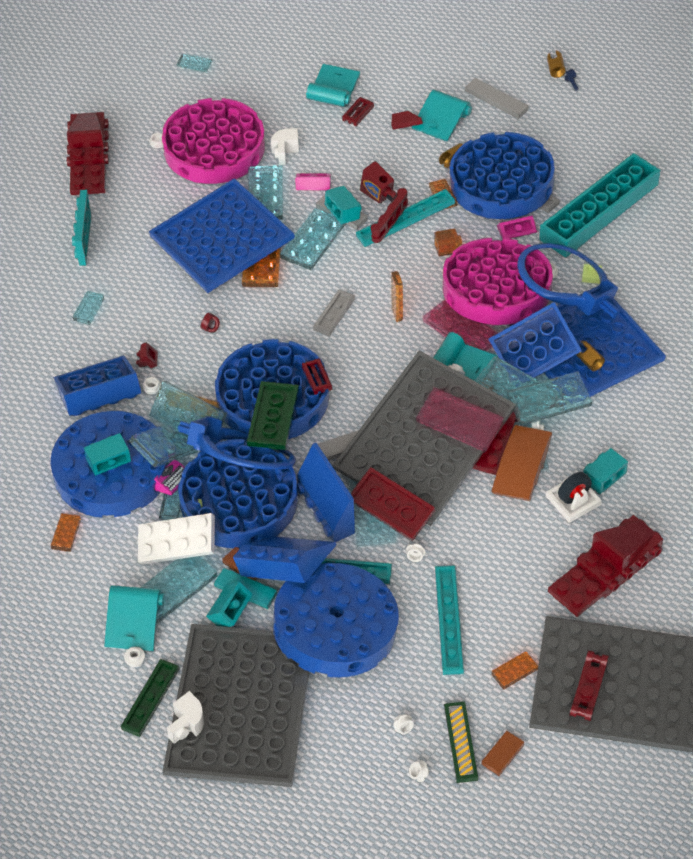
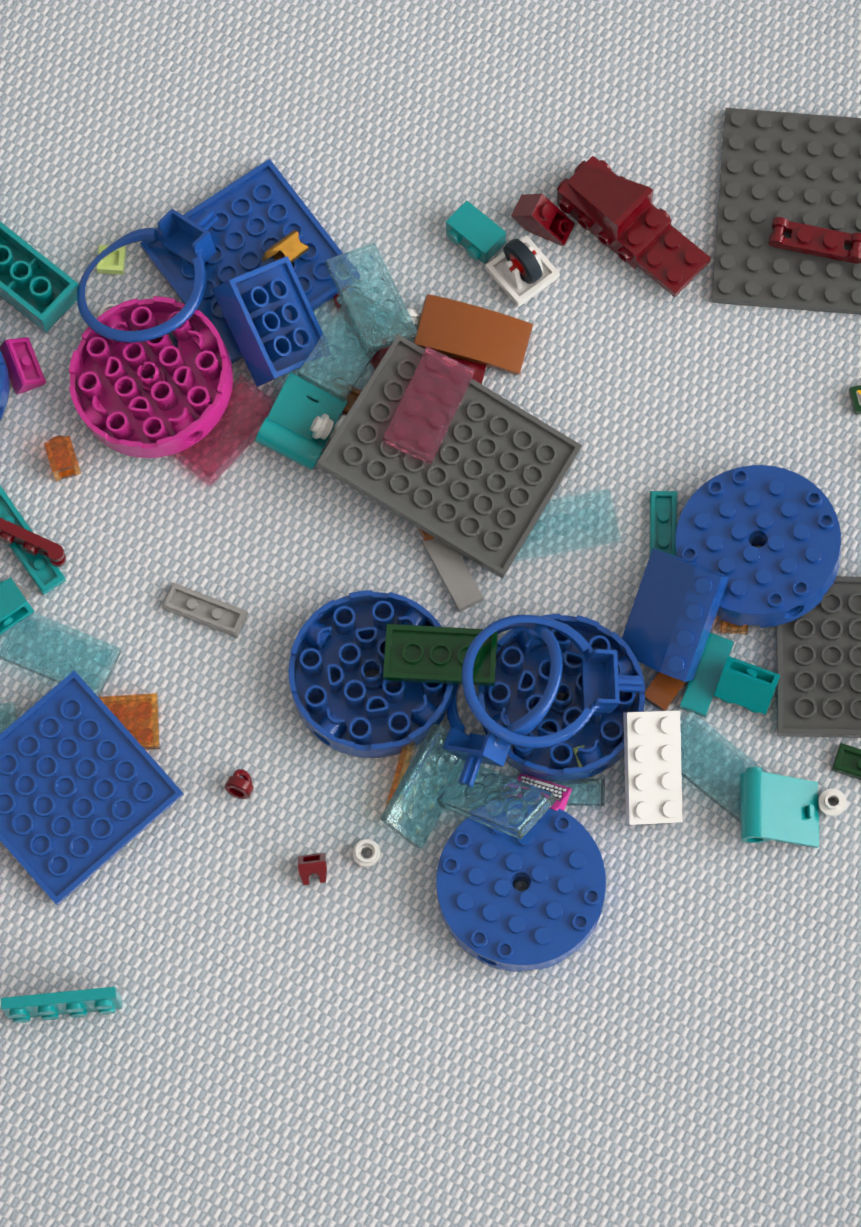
camera: 95 degrees left, 20 degrees up
(65, 532) = (638, 932): clear orange tile -> none
(88, 307) = (214, 974): clear light blue tile -> none
(97, 385) = (371, 932): blue slope -> none
(107, 454) = (531, 874): teal brick -> none
(237, 501) = (599, 683): none -> blue brick
(321, 387) = (343, 623): dark red tile -> none
(326, 495) = (564, 573): blue slope -> none
(392, 504) = (564, 492): dark red plate -> none
(397, 296) = (197, 509): clear orange tile -> none
(415, 552) = (628, 462): white plate -> none
(449, 620) = (726, 416): teal tile -> none
(514, 670) = (793, 333): clear orange tile -> none
(615, 510) = (542, 218): none -> dark red slope

